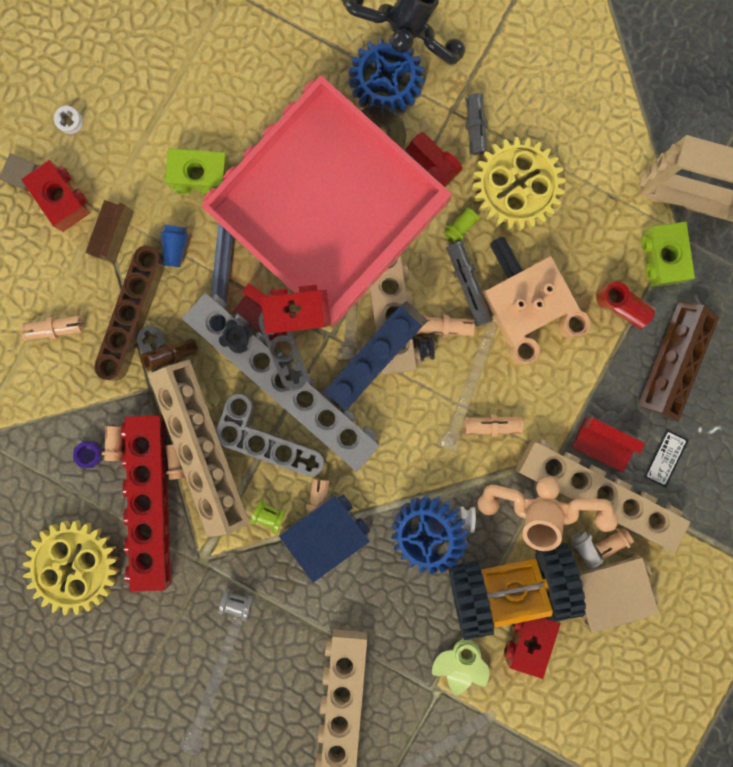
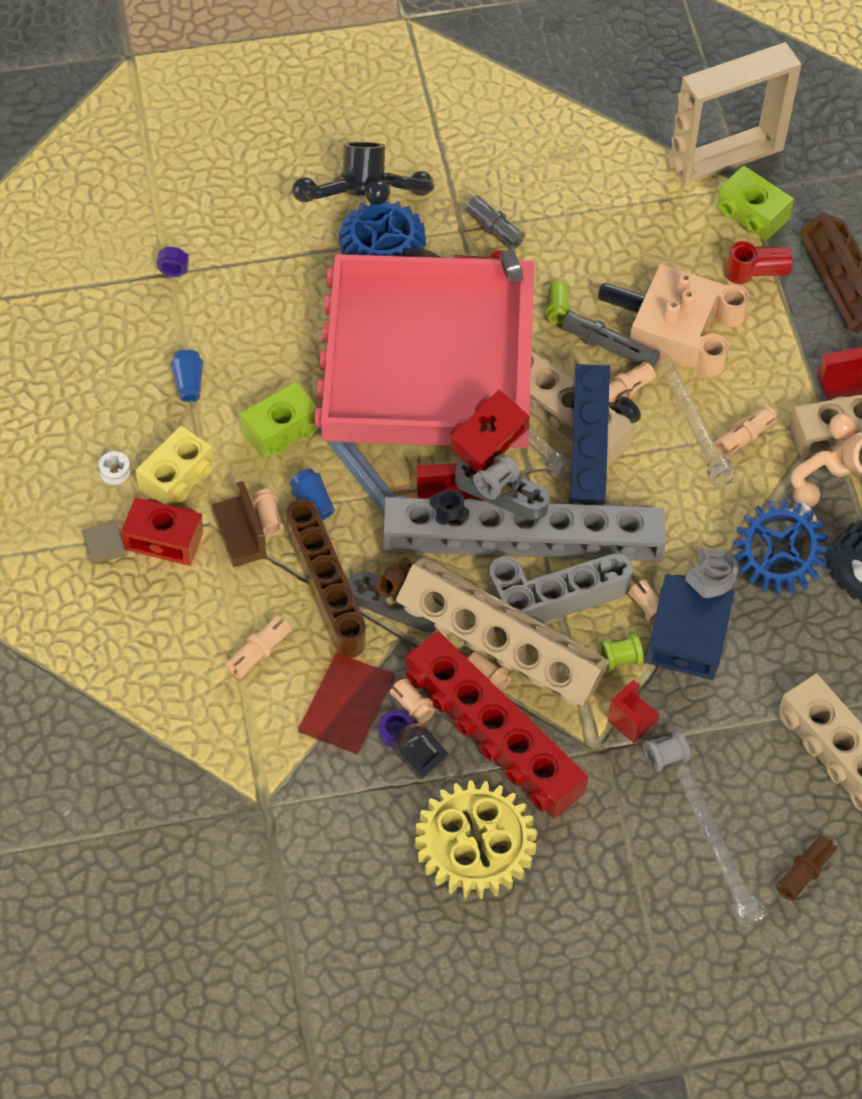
camera: 40 degrees left, 30 degrees down
(77, 409) = (346, 703): none -> clear red piece
(86, 481) = (418, 749): none -> black plate
(101, 145) = (170, 463): none -> light yellow brick
(136, 233) = (265, 503): none -> light nougat pin
(168, 85) = (187, 372): none -> blue cone
(237, 564) = (631, 714): none -> red panel
(252, 744) = (806, 867): none -> reddish brown axle
(275, 345) = (496, 476): none -> light grey bush
(370, 519) = (715, 572): none -> light grey tile
(426, 189) = (511, 266): none -> dark grey tile
(504, 164) = (598, 246): light yellow gear -> none

